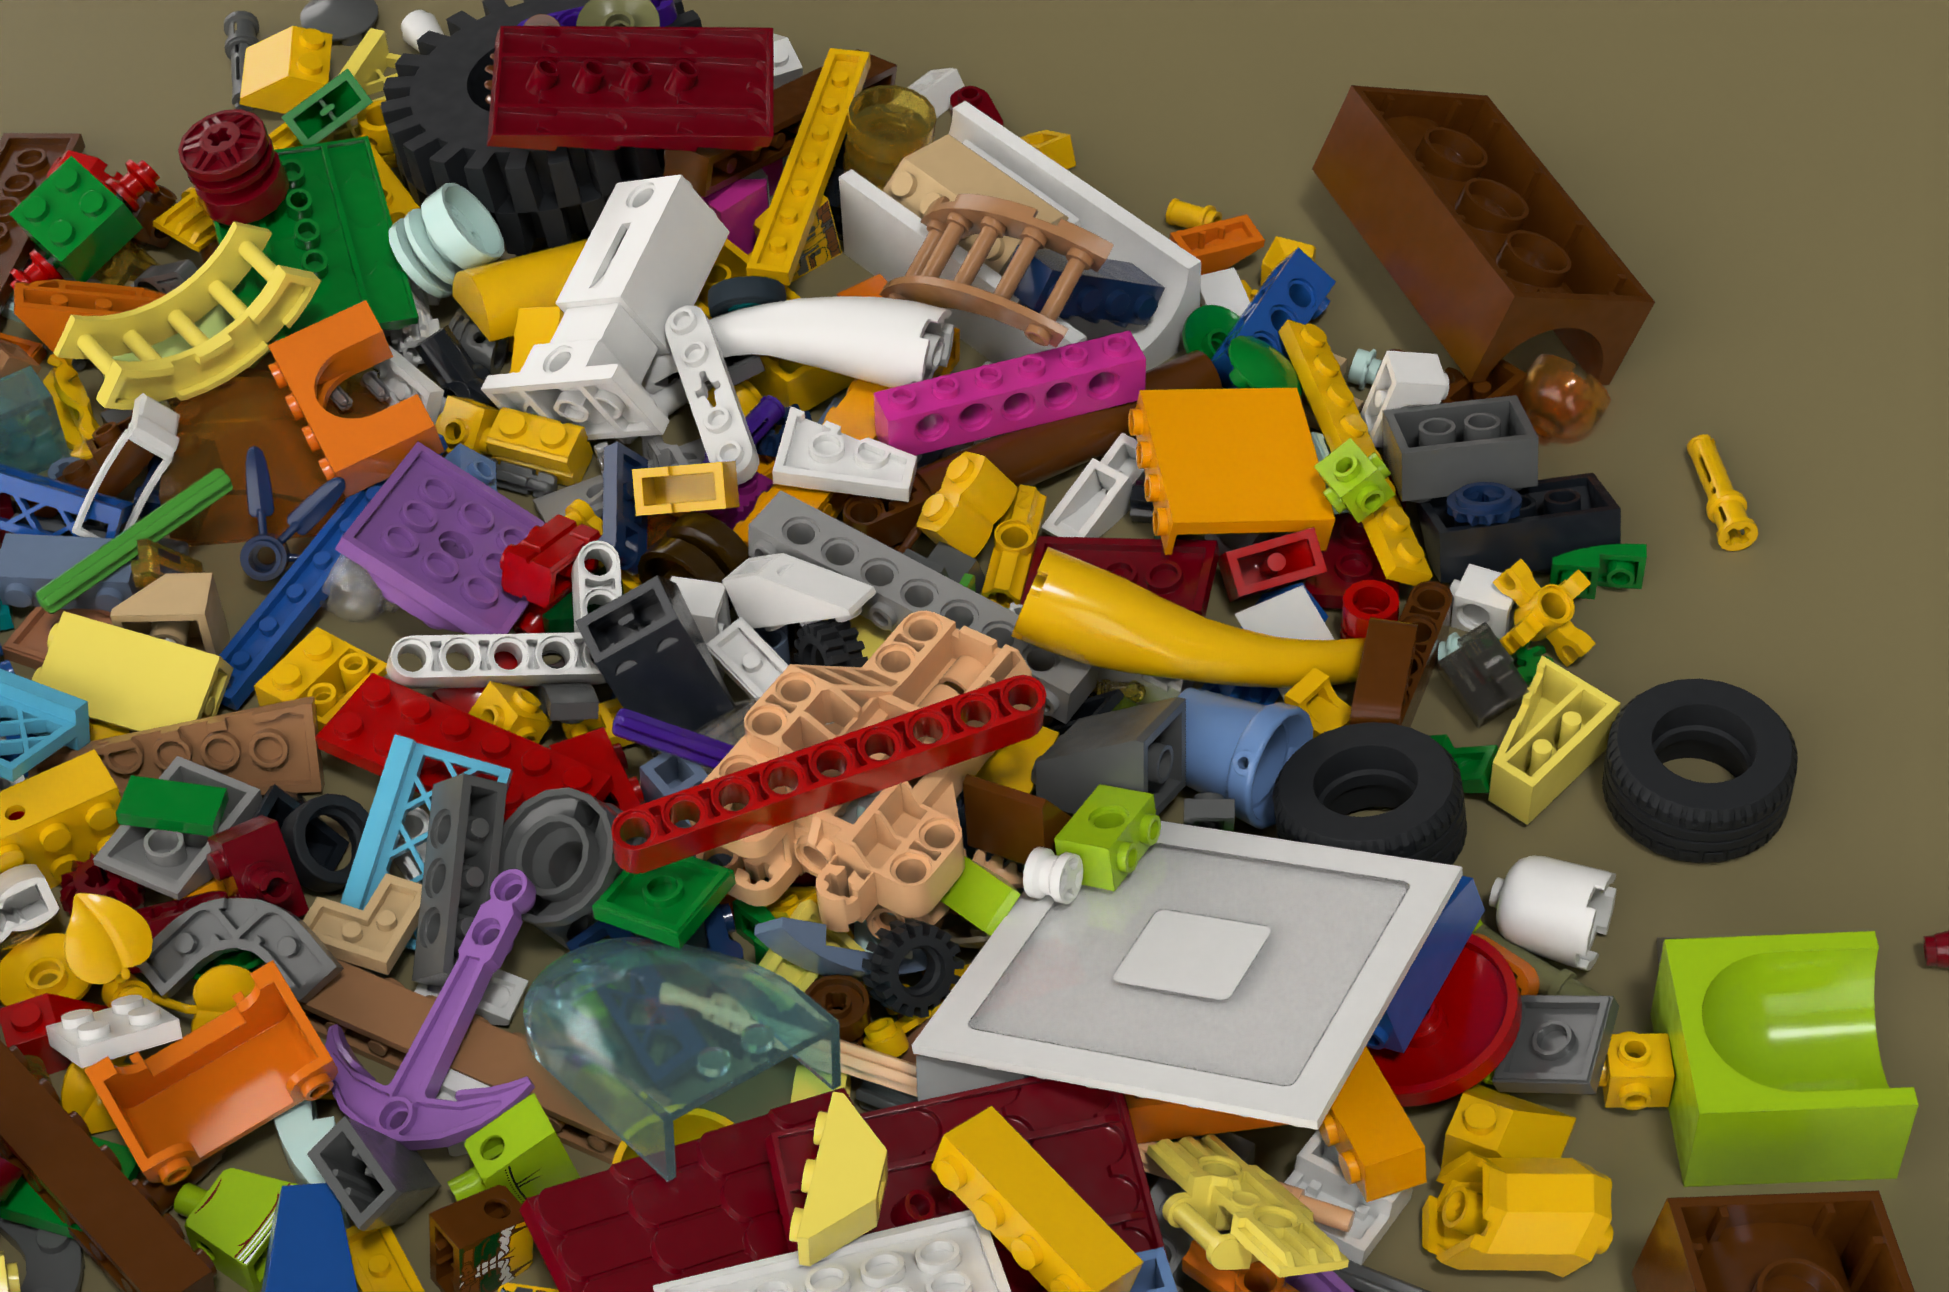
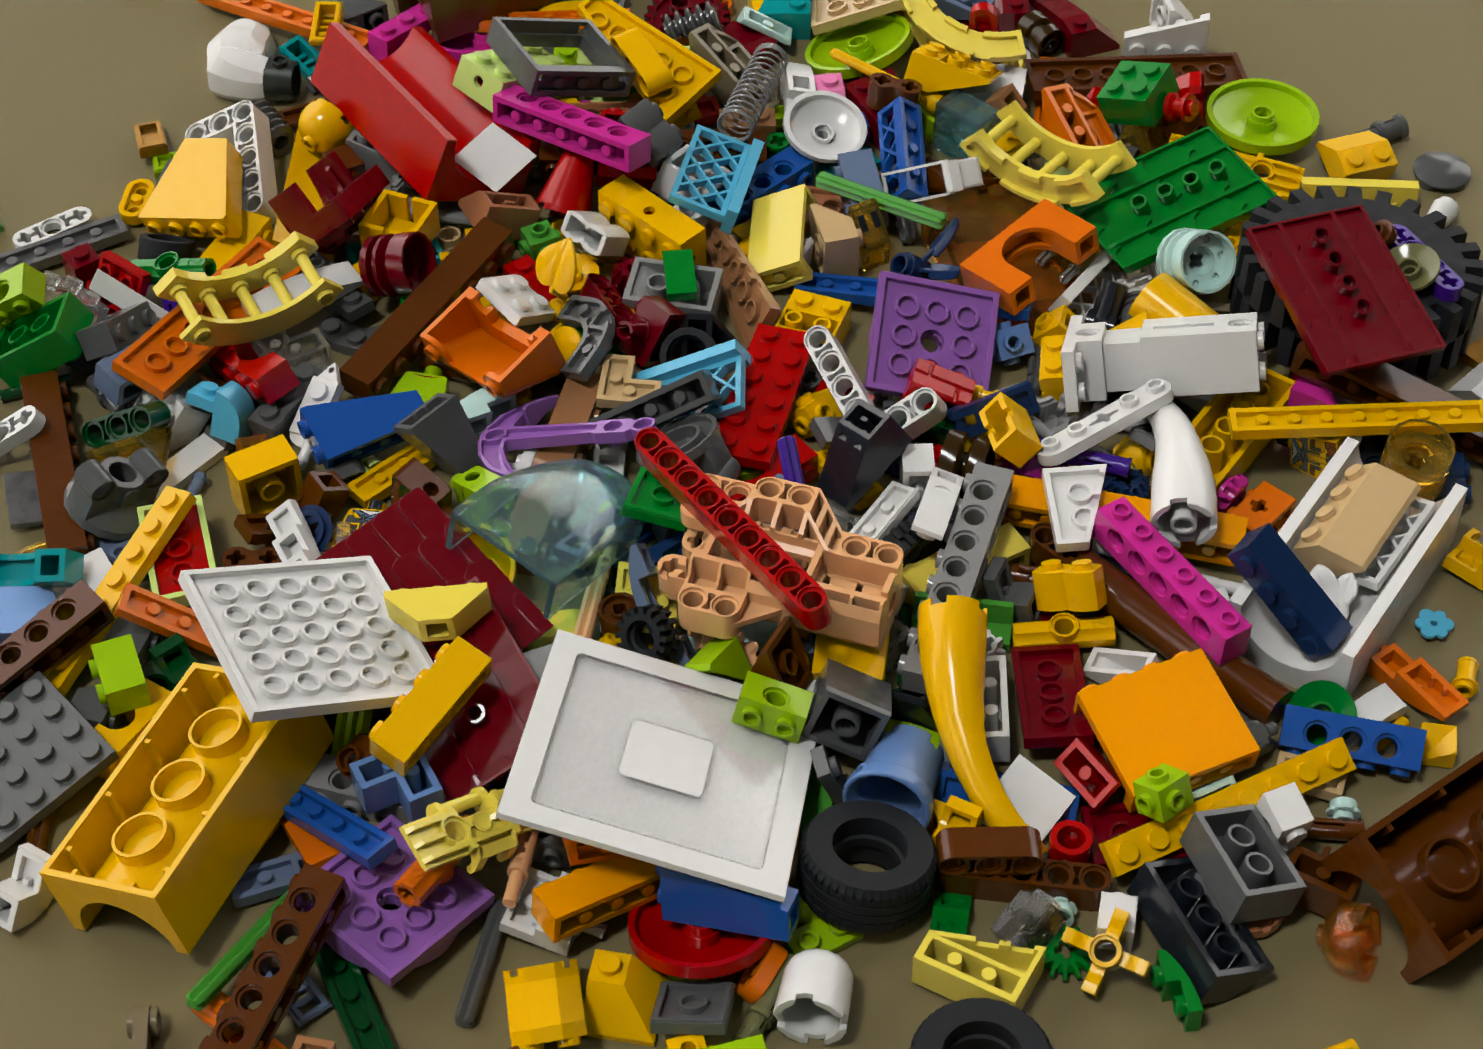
camera: 75 degrees right, 0 degrees up
(148, 126) = (1262, 116): none -> lime dish
(233, 166) = (1186, 132): dark red wheel -> none
(327, 109) = (1304, 174): green slope -> none
(743, 293) = (1199, 418): black bush -> none
(993, 219) = (1240, 500): medium nougat fence -> none
(1053, 875) = (717, 685): white wheel -> none
(1260, 365) = (1281, 729): green dish -> none
(1484, 503) = (1188, 877): dark blue gear -> none

